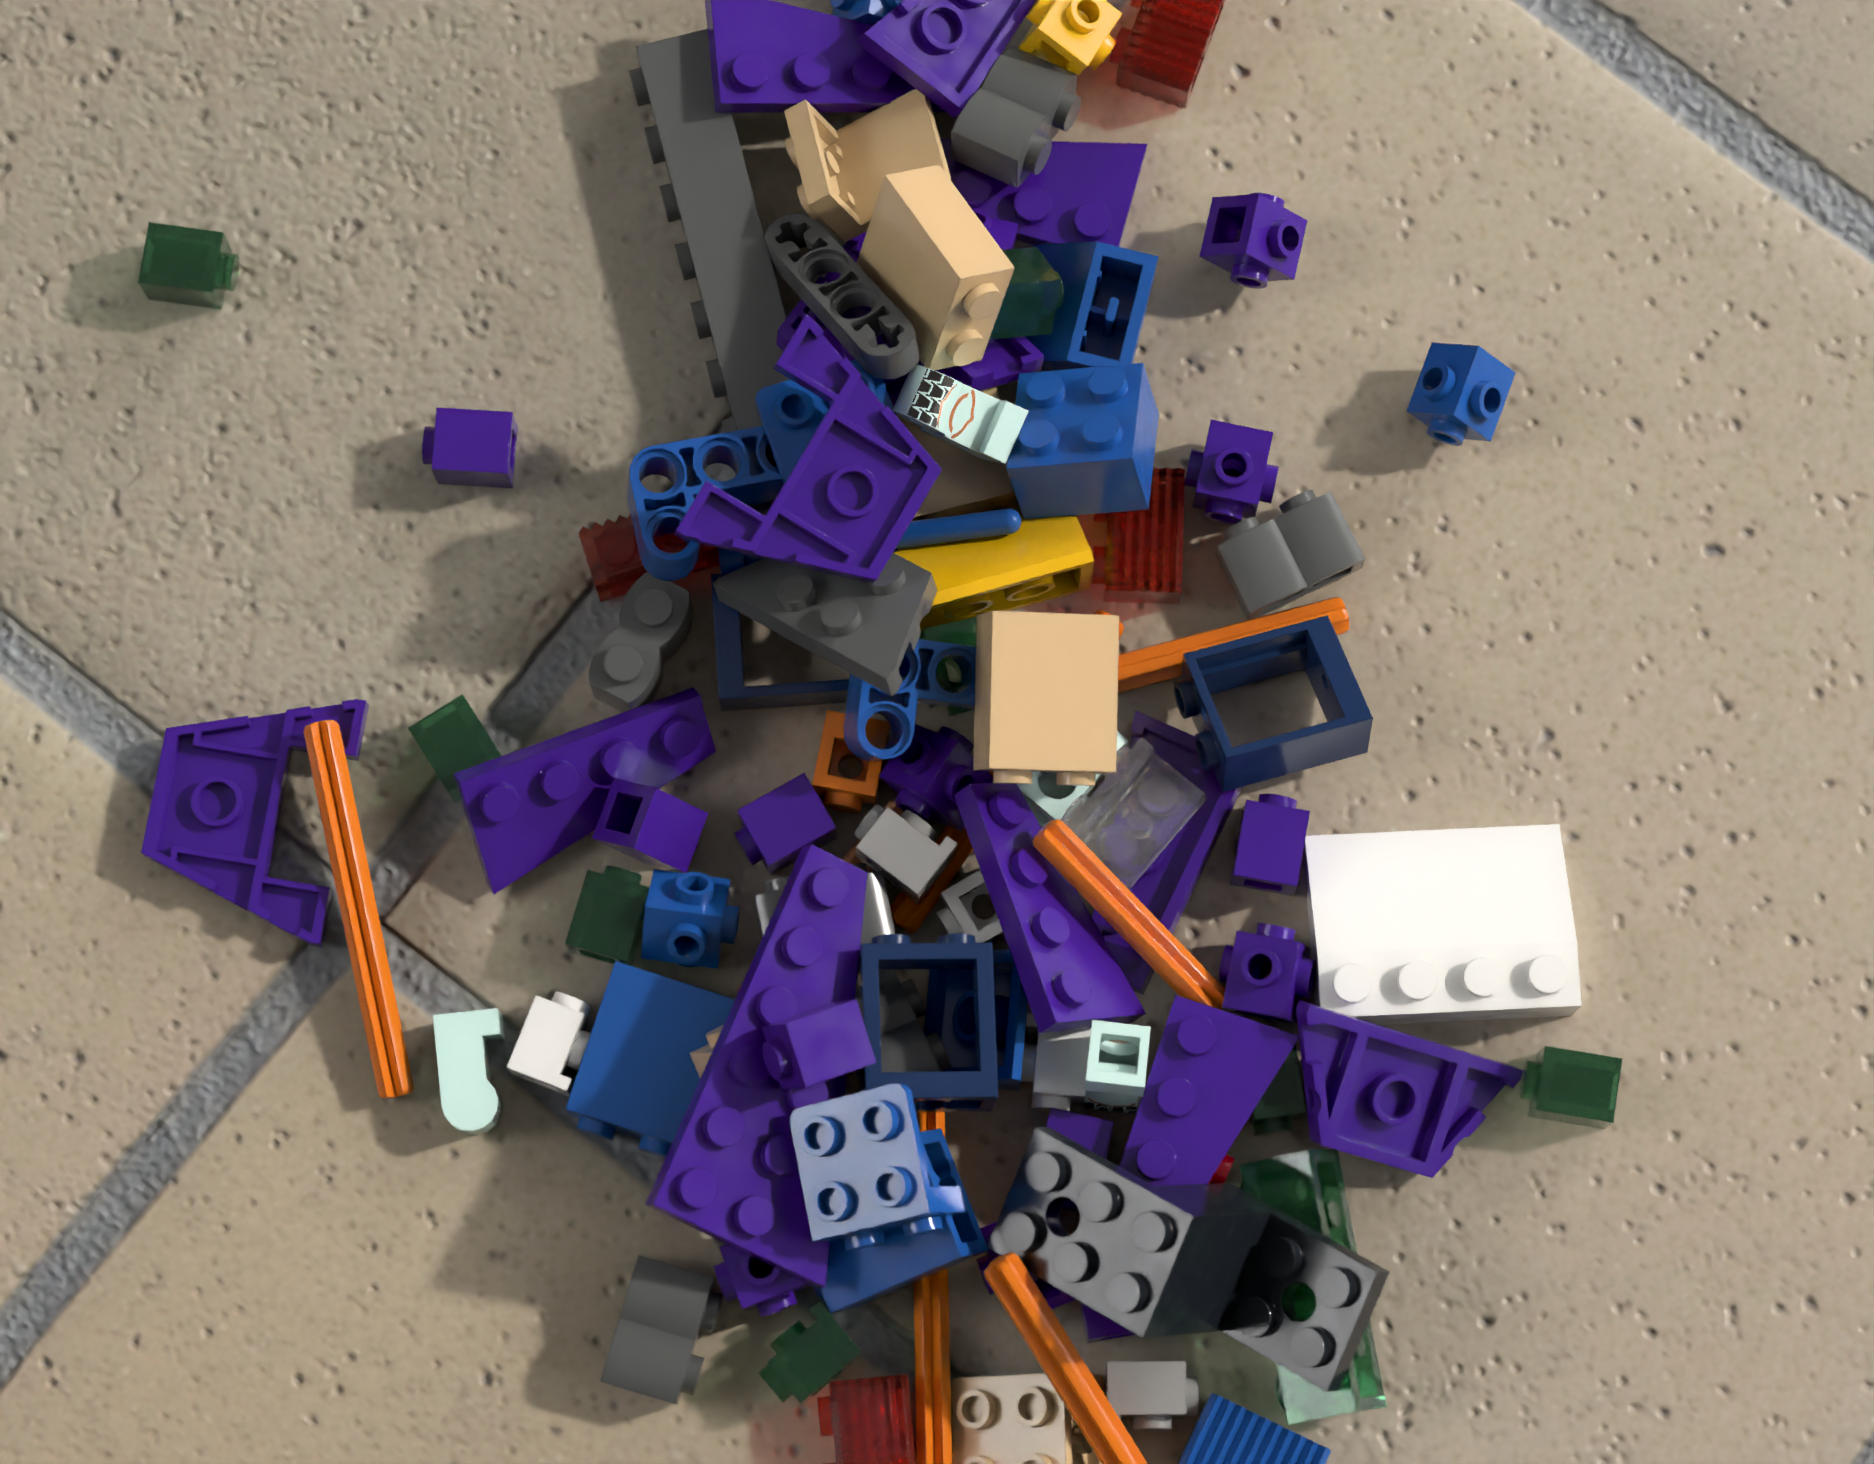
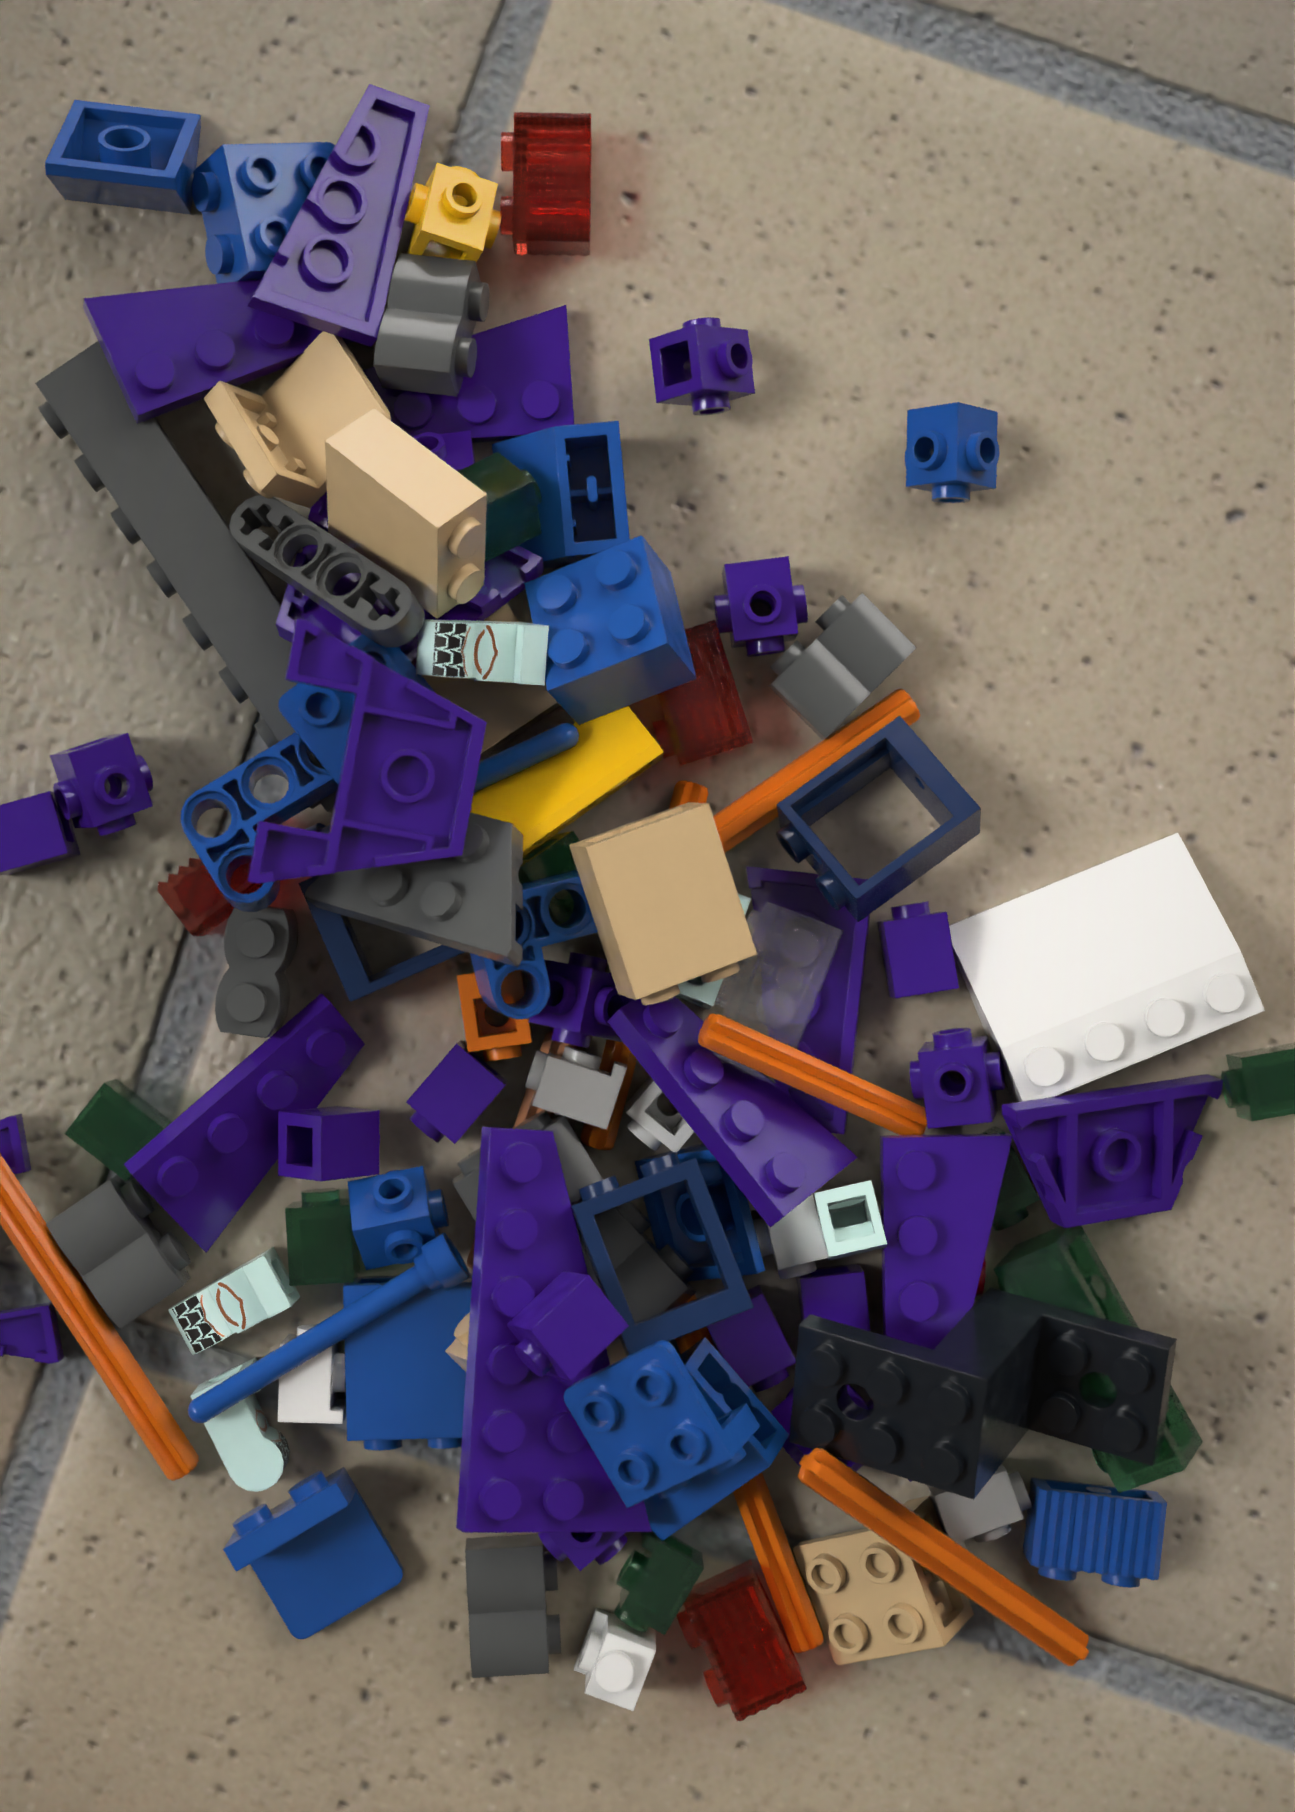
camera: 20 degrees left, 10 degrees up
(415, 860) = (121, 1249): none -> dark grey brick
(493, 1213) = (316, 1552): none -> blue bracket
(503, 948) = (235, 1302): none -> light aqua leg
(561, 424) = (102, 784): none -> dark purple brick
(708, 971) = (435, 1268): none -> blue piece
(743, 1417) = (615, 1659): none -> white brick
(983, 1155) = (754, 1344): none -> dark purple brick

